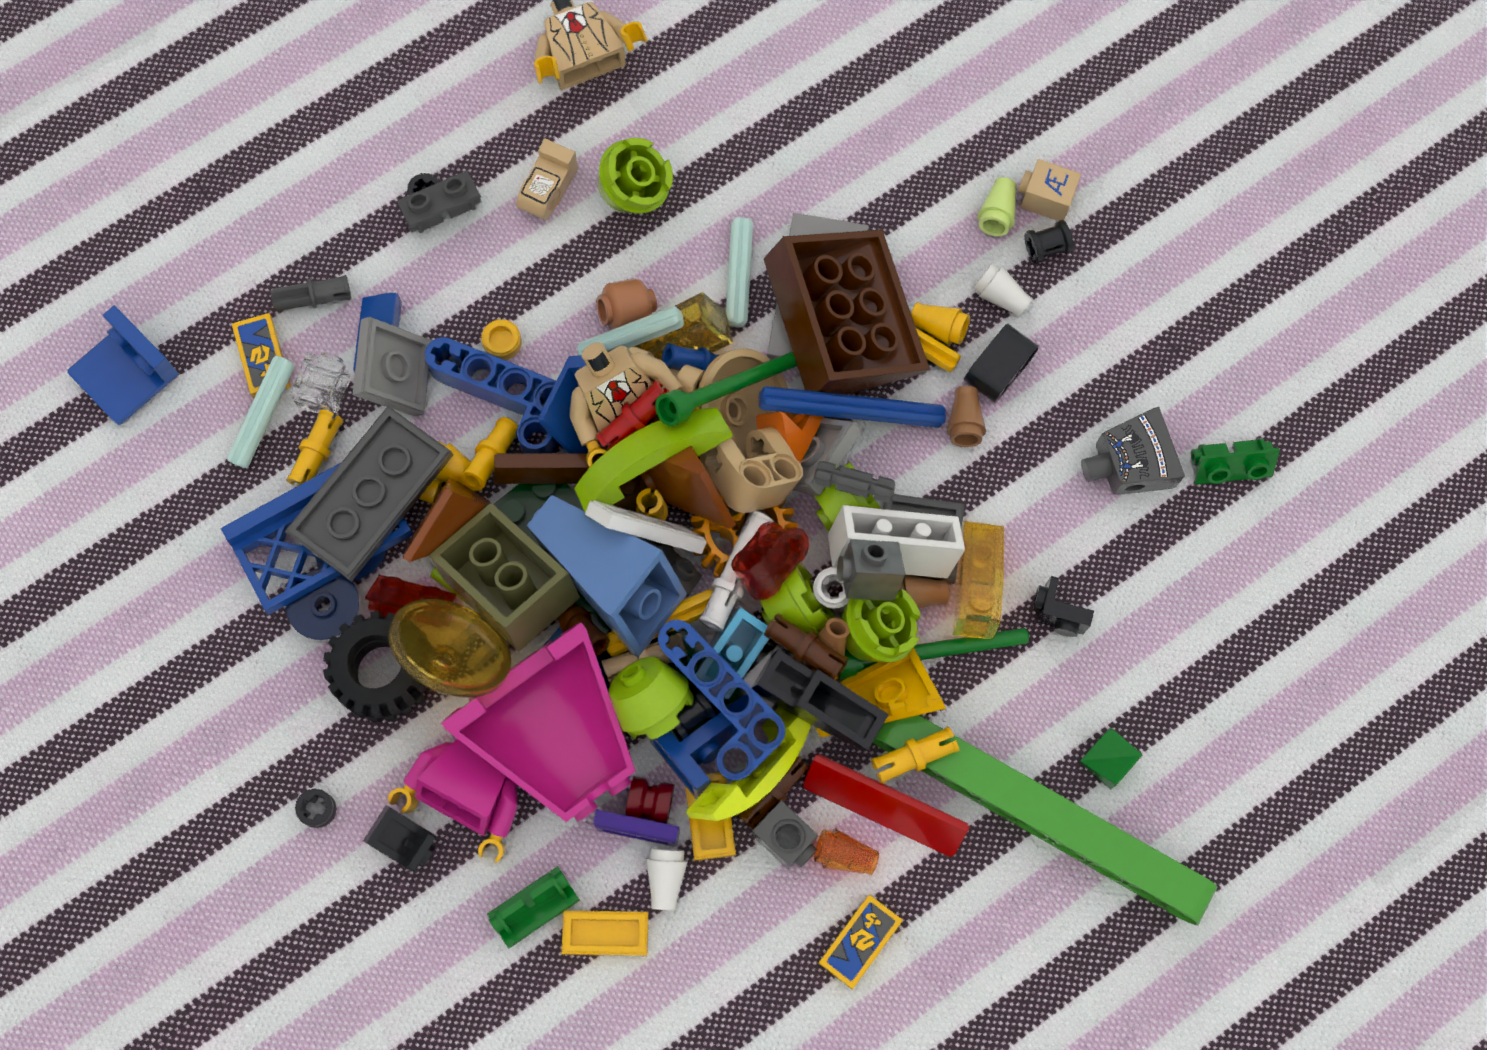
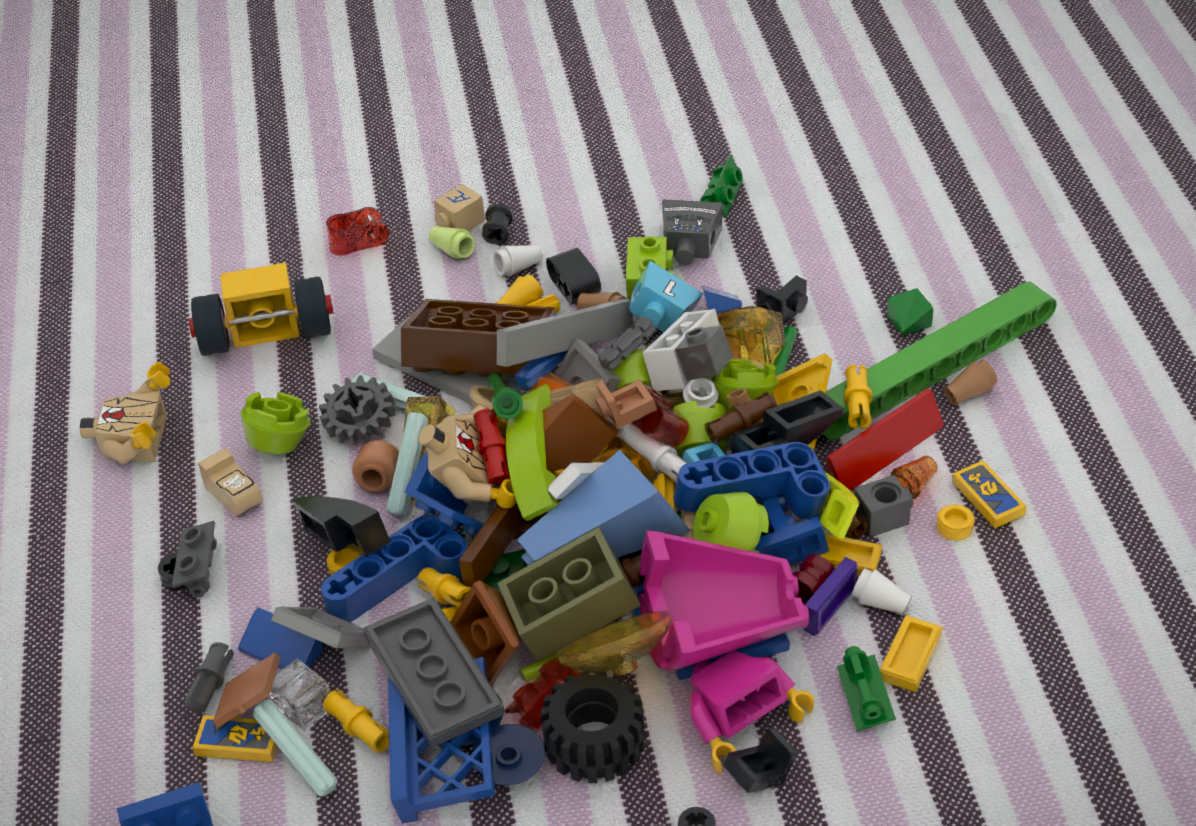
camera: 60 degrees left, 30 degrees down
(299, 337) = (247, 689): none -> nougat piece
(516, 317) = (342, 523): none -> black slope
(690, 261) = (340, 412): none -> dark grey gear
(746, 521) = (625, 404): none -> nougat bracket
(784, 69) = (259, 309): none -> brick
(805, 919) = (955, 522): none -> yellow tile
(858, 405) = (558, 332): none -> light grey tile
(971, 102) = (353, 231): none -> clear red piece
(981, 480) = (662, 297): none -> medium azure torso
(1018, 542) = (720, 300): none -> blue slope
(1021, 867) = (971, 382): none -> medium nougat cone
(1045, 440) = (642, 251): none -> lime brick

